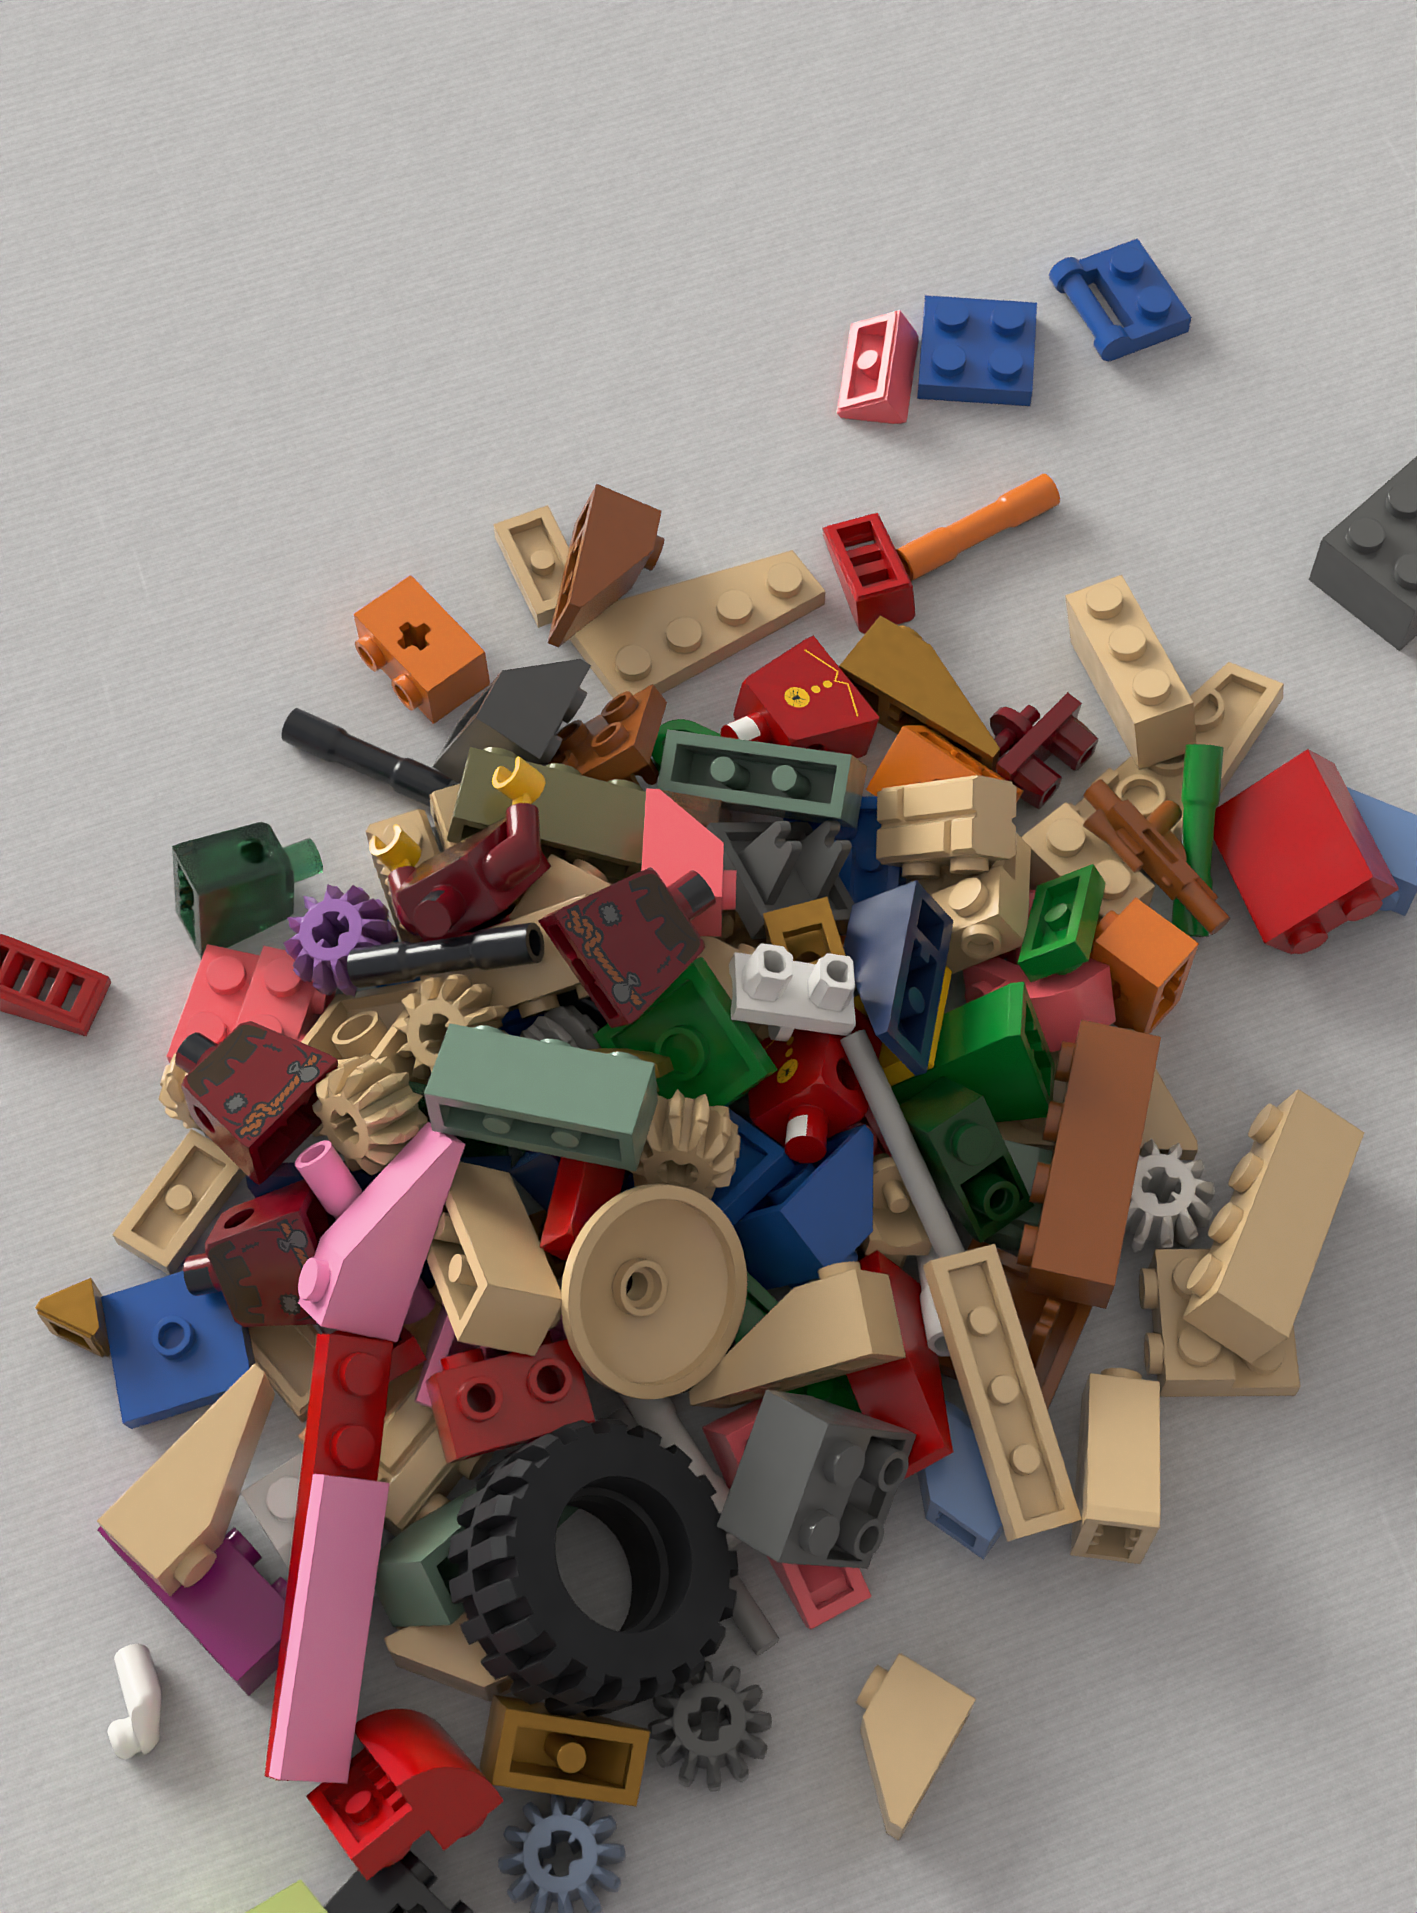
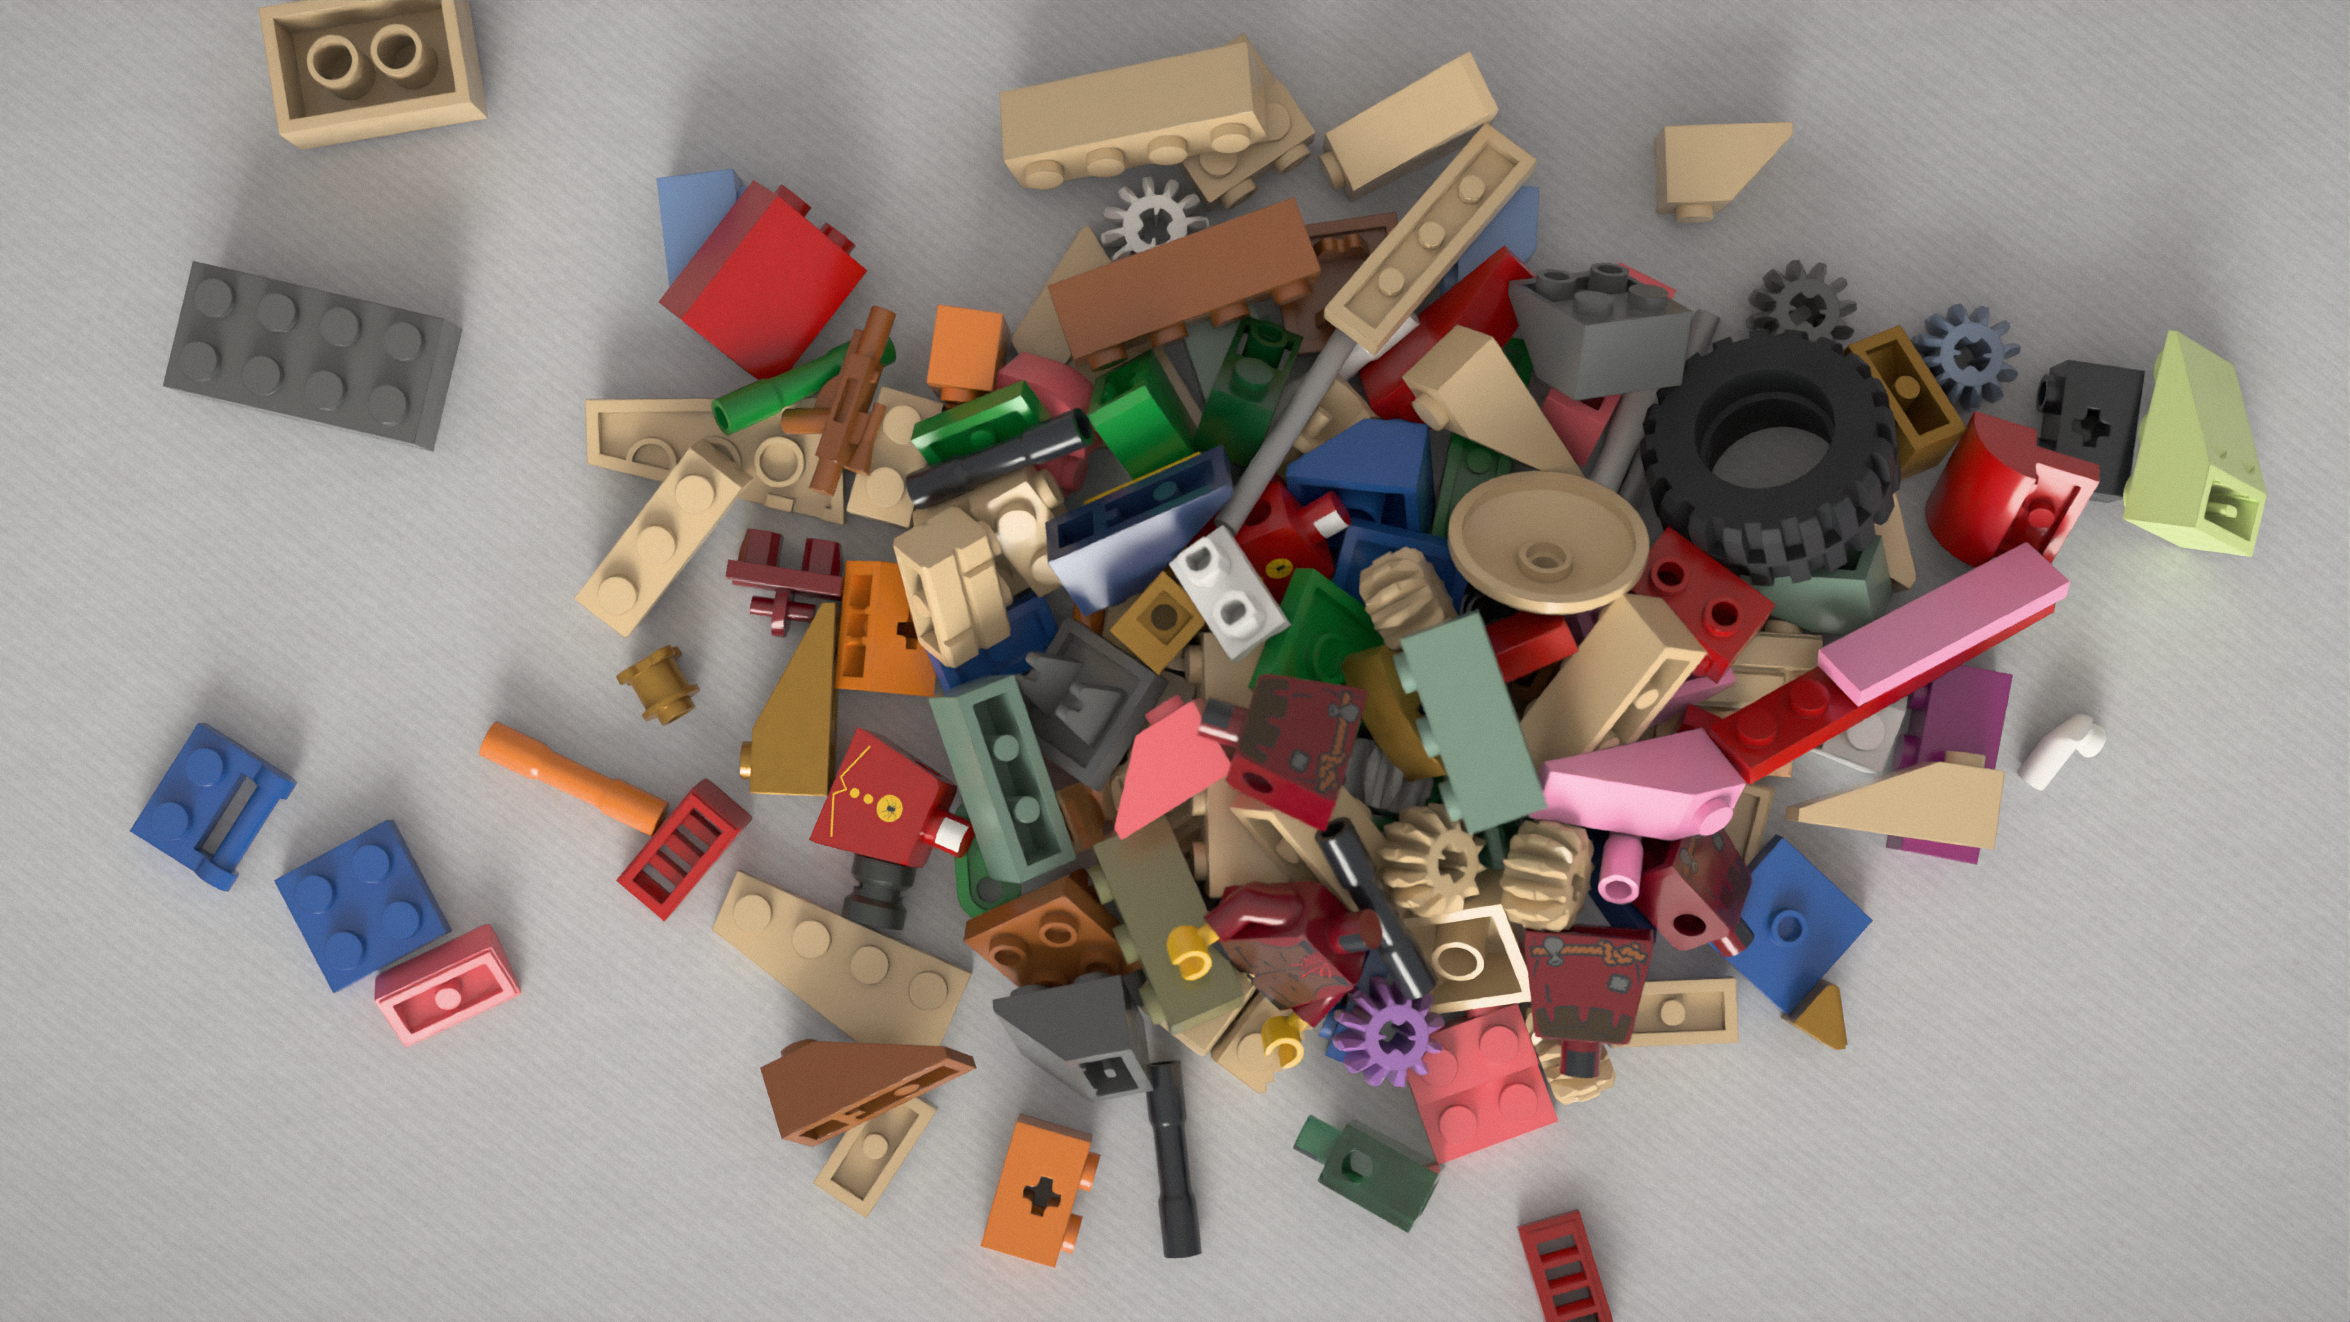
camera: 125 degrees left, 25 degrees up
(727, 664) = (878, 895): none -> pearl dark grey wheel
(1010, 616) = (661, 685): none -> pearl gold brick
(1025, 935) = (1032, 446): none -> black piece

